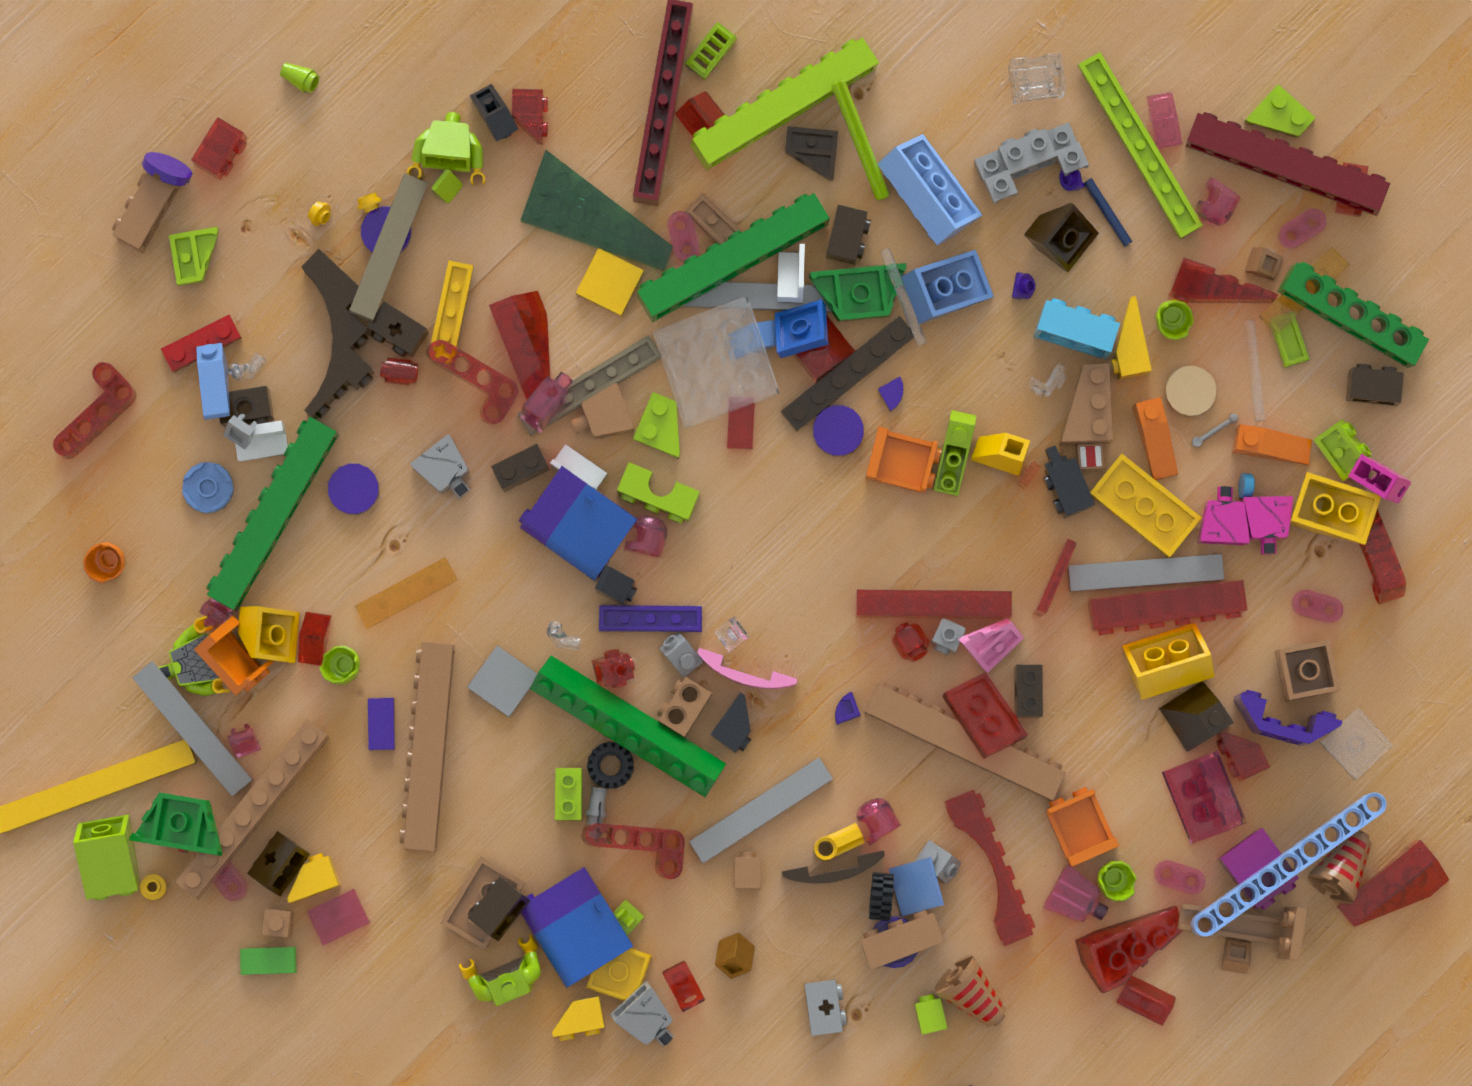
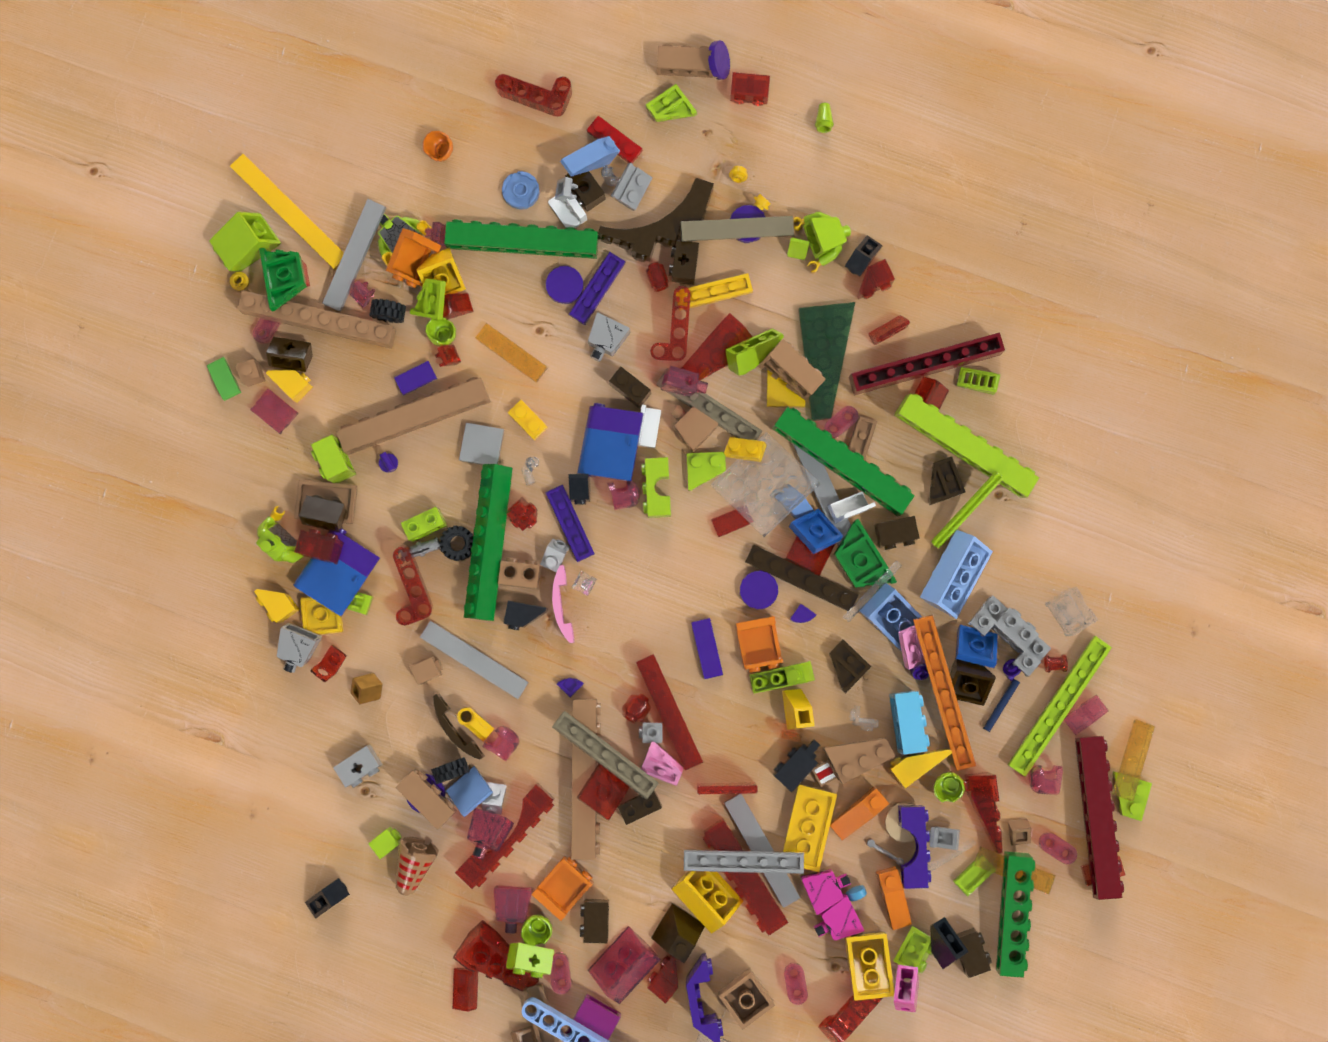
camera: 70 degrees right, 0 degrees up
(271, 349) = (631, 186): none -> light grey plate
(283, 718) = (387, 311): none -> black tyre
(296, 659) = (430, 300): none -> lime wing
(373, 670) = (448, 355): none -> clear red tile
(376, 451) = (597, 288): none -> dark purple tile
(437, 867) = (333, 461): none -> lime brick
(470, 805) = (388, 462): none -> dark purple plate
(499, 611) = (527, 420): none -> yellow plate
(538, 930) = (319, 546): none -> clear red brick
(547, 300) = (751, 352): none -> lime slope
(594, 262) = (793, 369): none -> medium nougat wedge
(597, 126) = (888, 329): none -> clear red slope
(662, 366) = (745, 449): none -> yellow plate
(879, 525) = (707, 648): none -> dark purple tile
(949, 702) = (605, 755): none -> dark tan tile
(974, 883) = (487, 832): none -> clear pink torso
(977, 368) = (848, 665): none -> dark brown wing
(988, 277) = (911, 648): none -> bright pink wing
(1027, 209) = (975, 648): none -> blue plate
(1061, 270) = (944, 692): none -> orange plate
(1088, 125) = (1055, 663): none -> clear red bush
(1138, 806) = (595, 921): none -> dark brown brick
(1146, 902) = (540, 958): none -> lime brick
(1148, 598) = (744, 861): none -> light grey tile
(1229, 353) = (944, 837): none -> light grey bracket
(1241, 91) = (1133, 760): none -> clear yellow tile
(1252, 404) = (915, 872): none -> dark purple arch
(1350, 409) = (945, 943): none -> black slope

